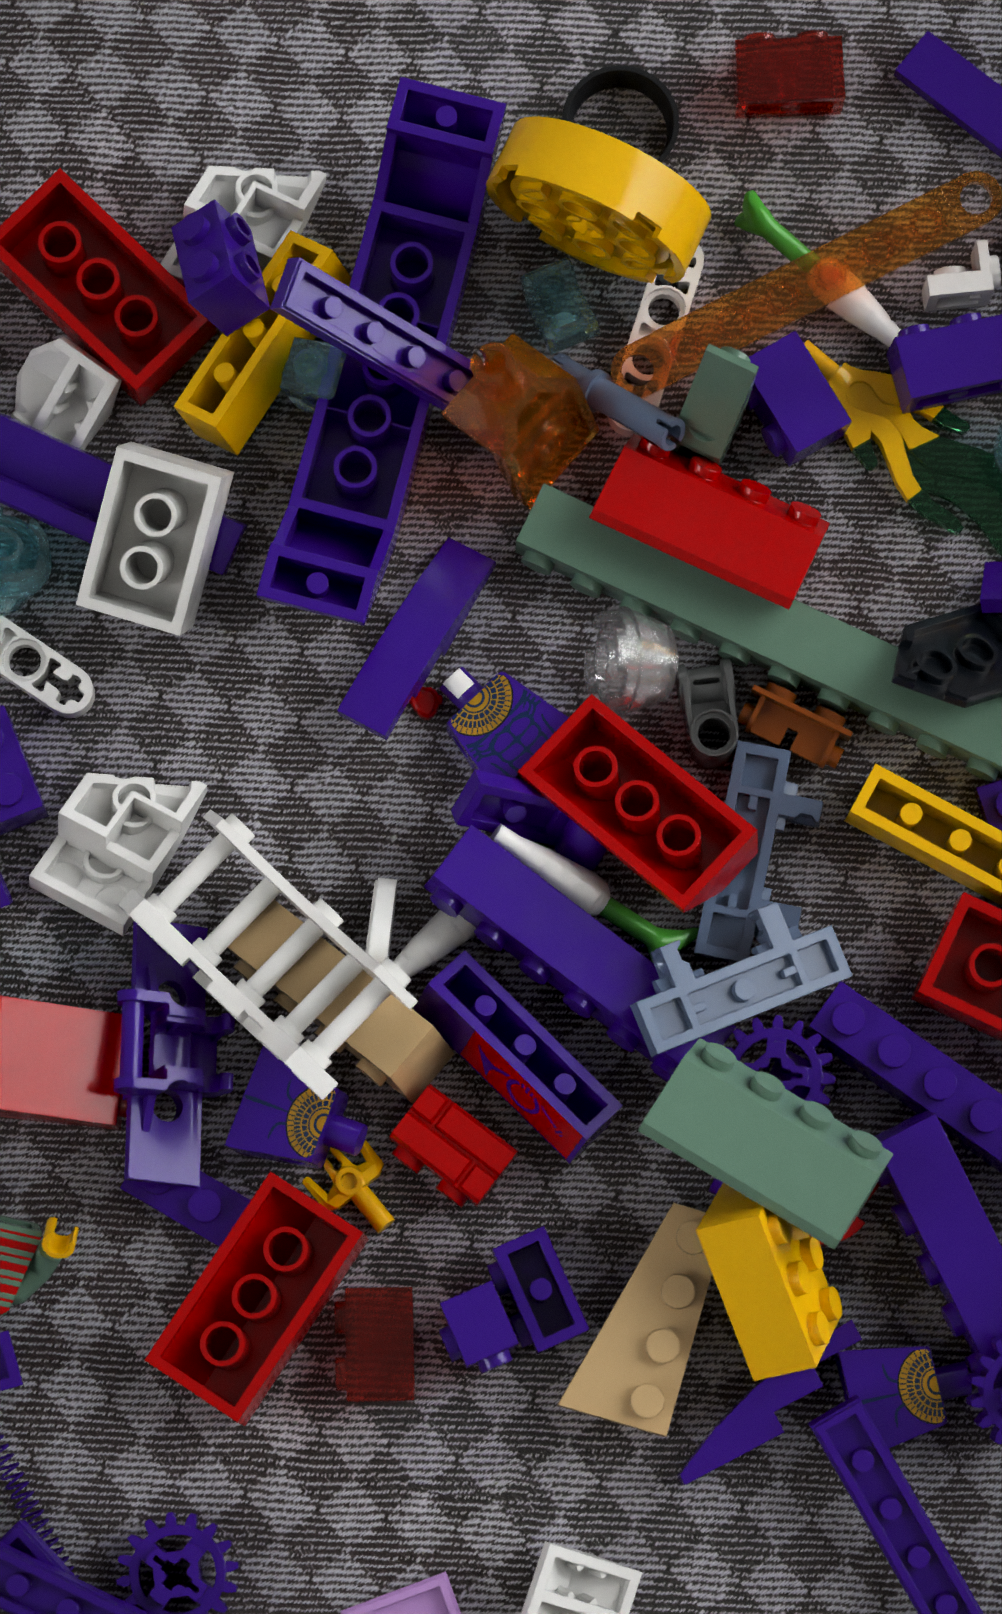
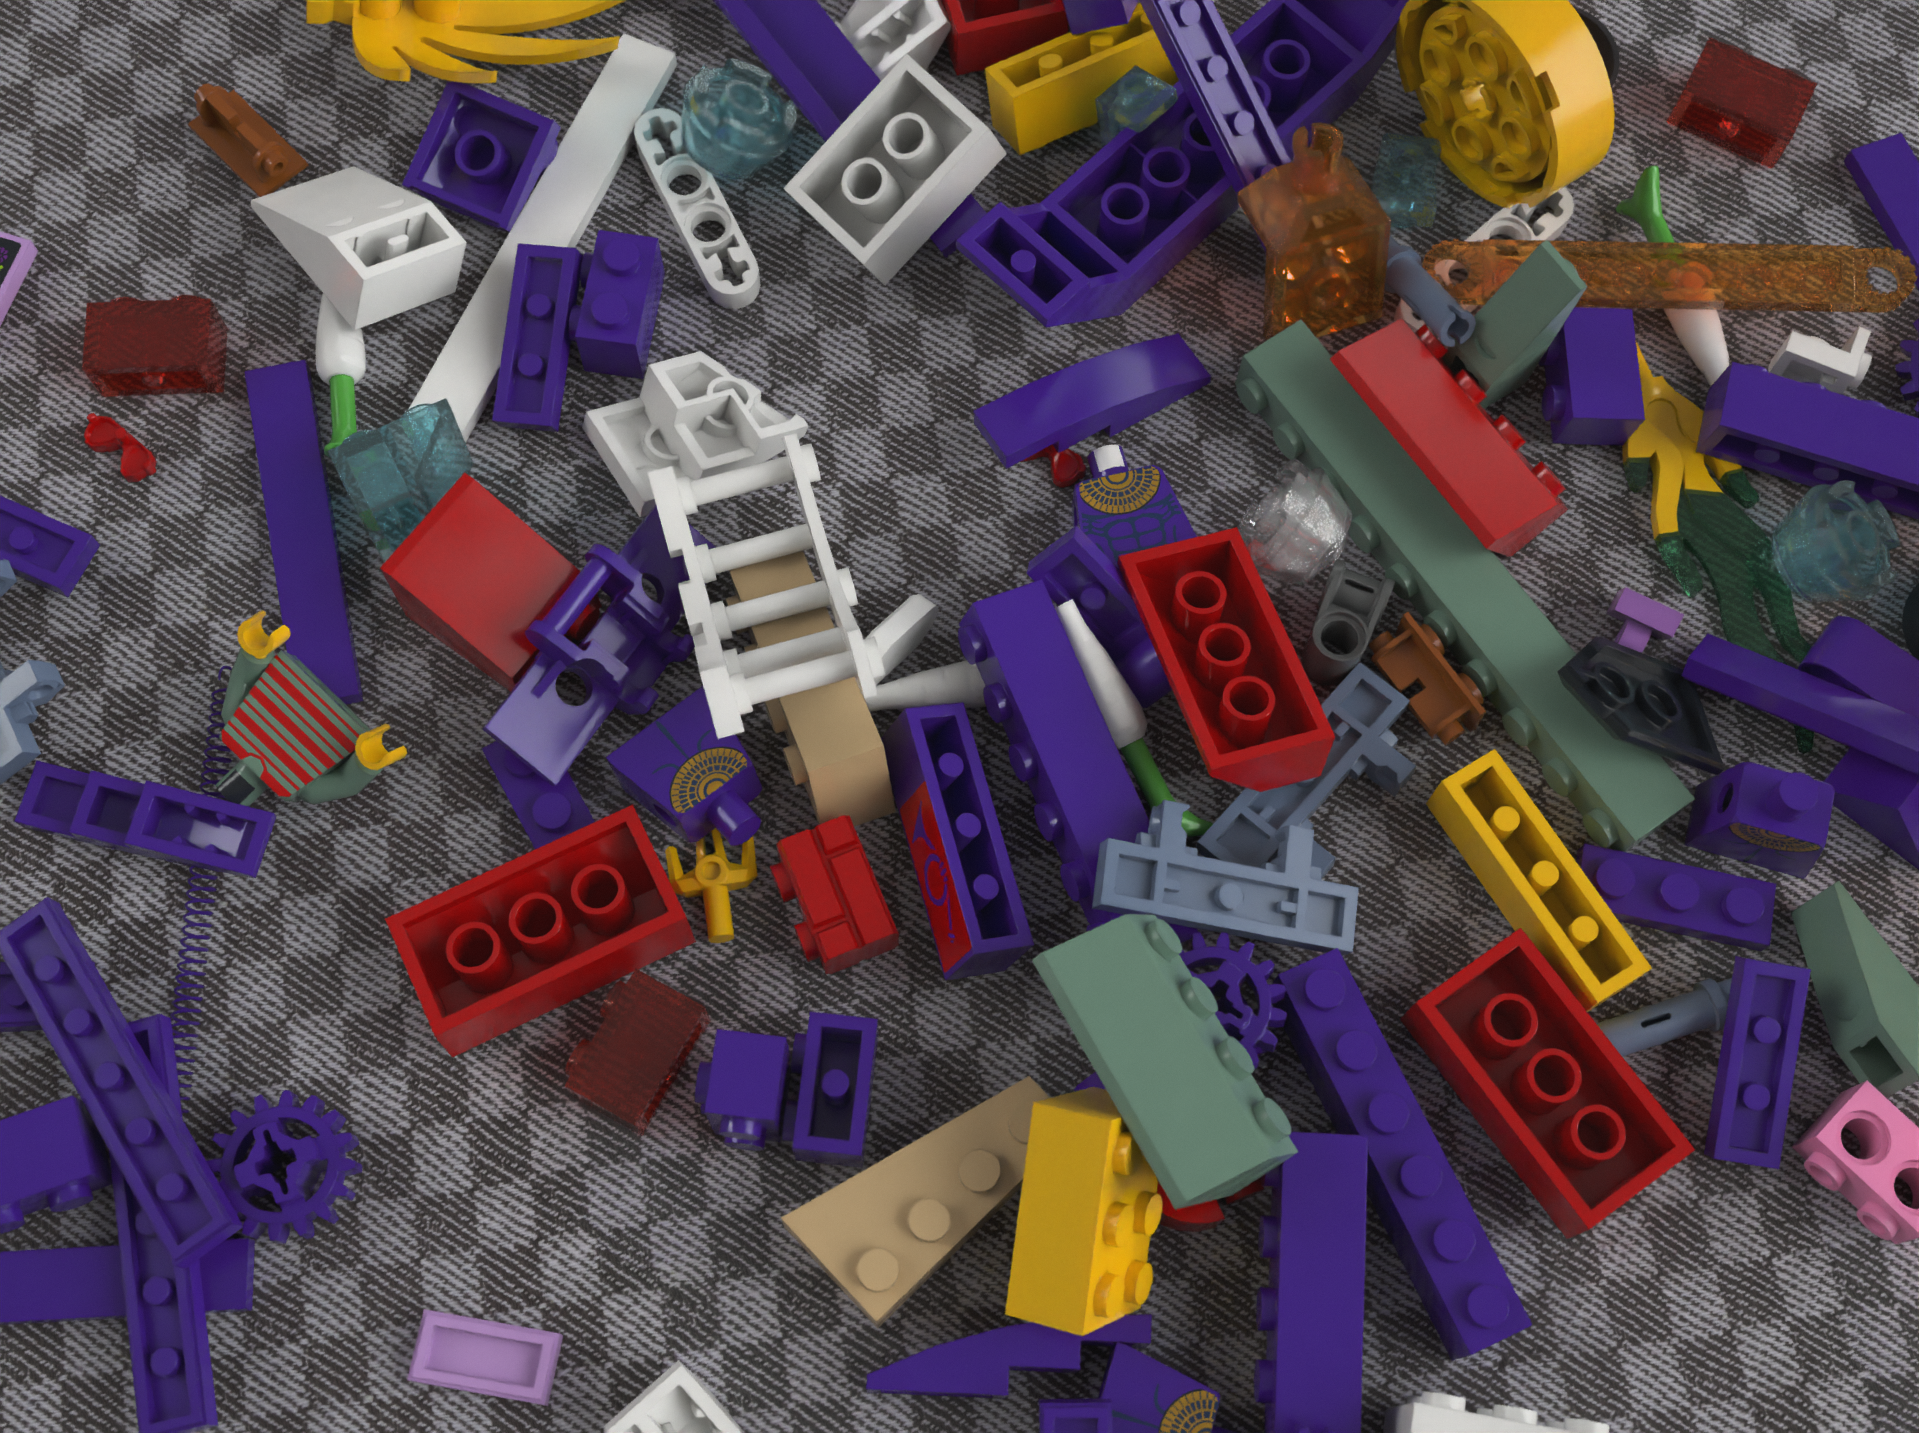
camera: 30 degrees right, 10 degrees down
(930, 582) = (1642, 619): none -> medium lavender tile

